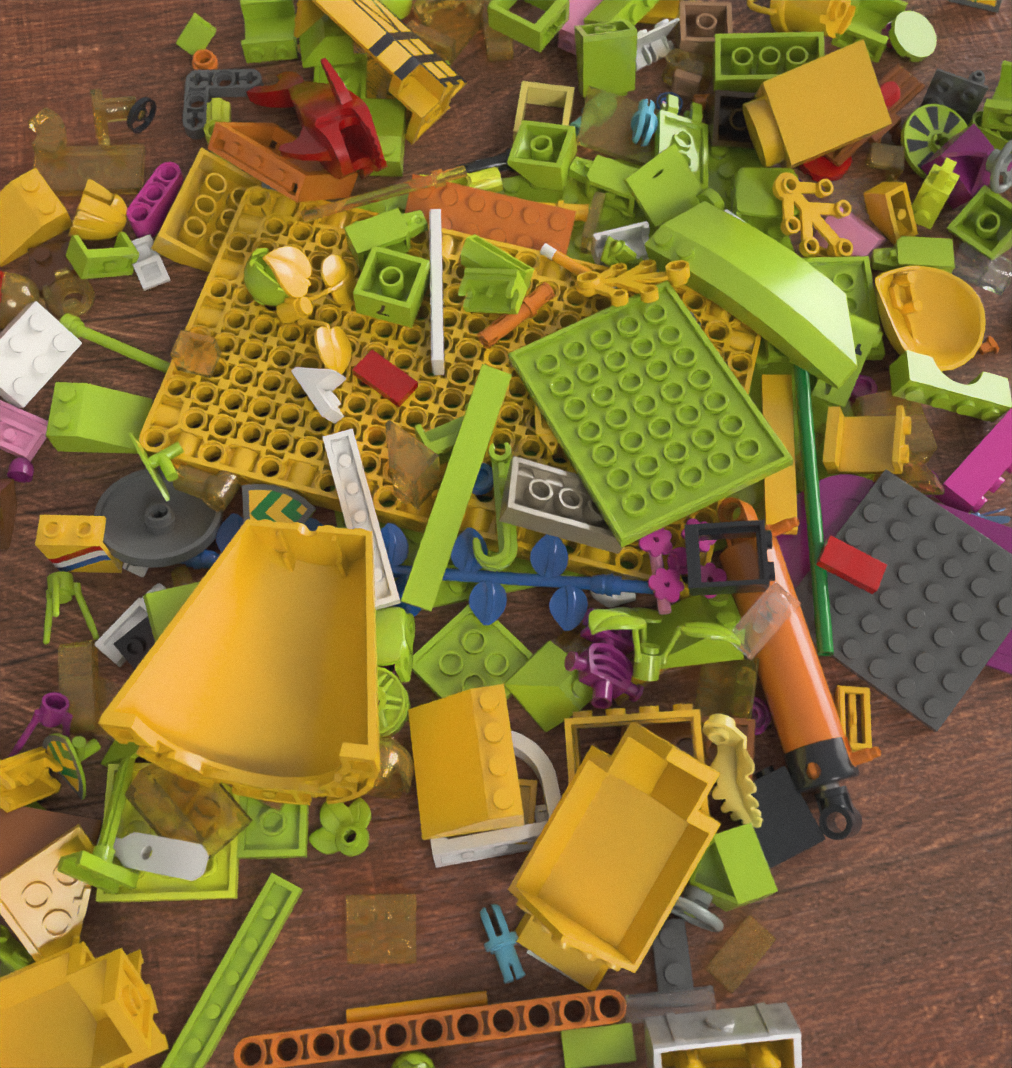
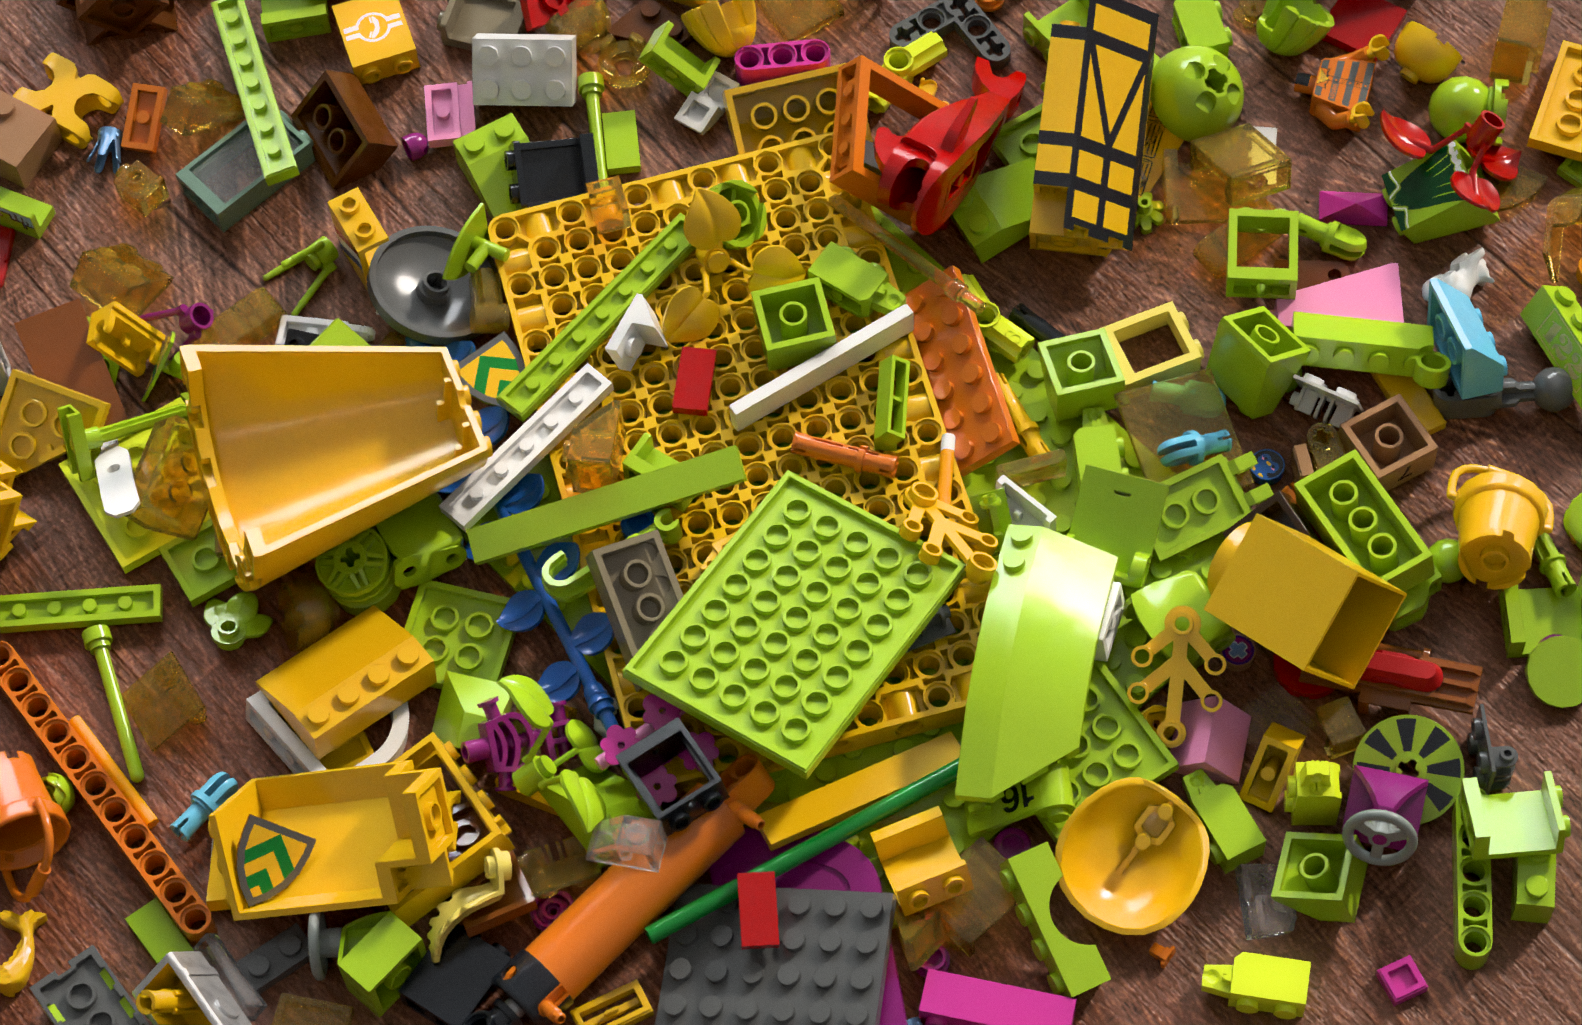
camera: 65 degrees right, 5 degrees down
(128, 383) = (550, 169): none -> black panel
(134, 332) = (621, 142): none -> lime tile
(285, 414) = (596, 321): none -> lime tile
(288, 955) = (98, 641): none -> lime piece
(492, 290) = (850, 416): lime hinge -> none
(602, 911) = (269, 858): none -> shield

